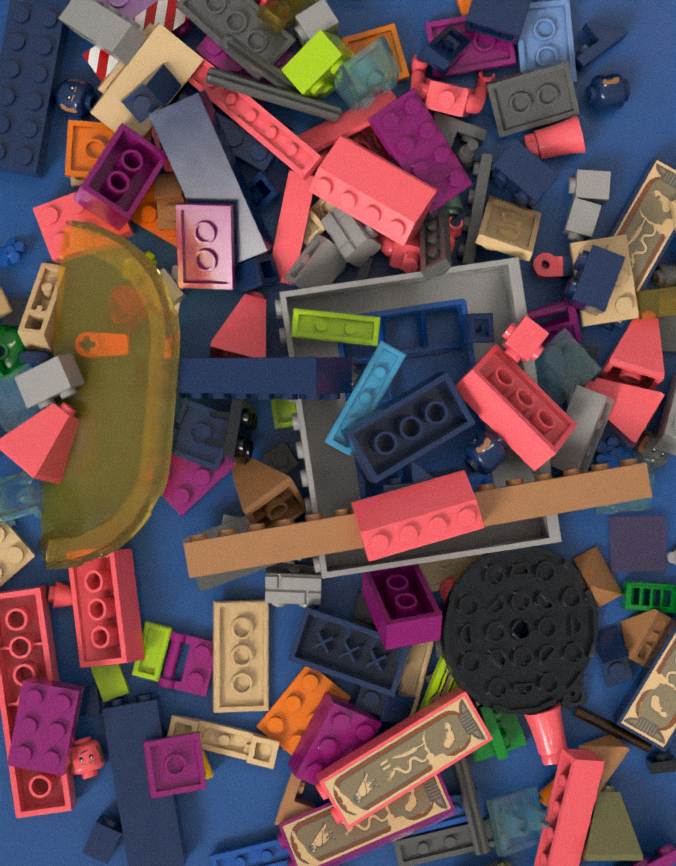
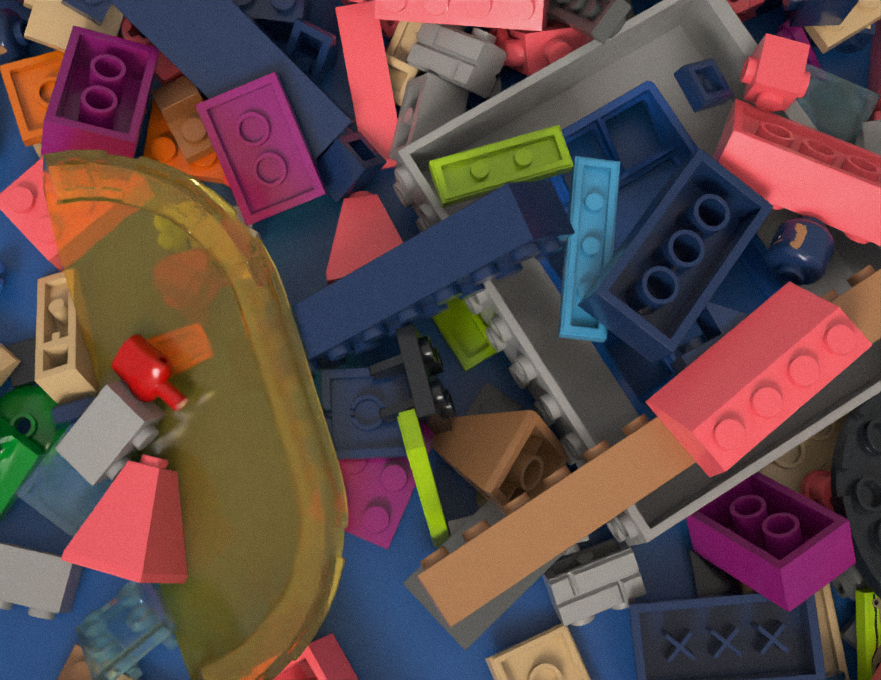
camera: 35 degrees left, 10 degrees down
(84, 357) = (147, 372): none -> red piece
(216, 486) = (423, 476): none -> lime tile

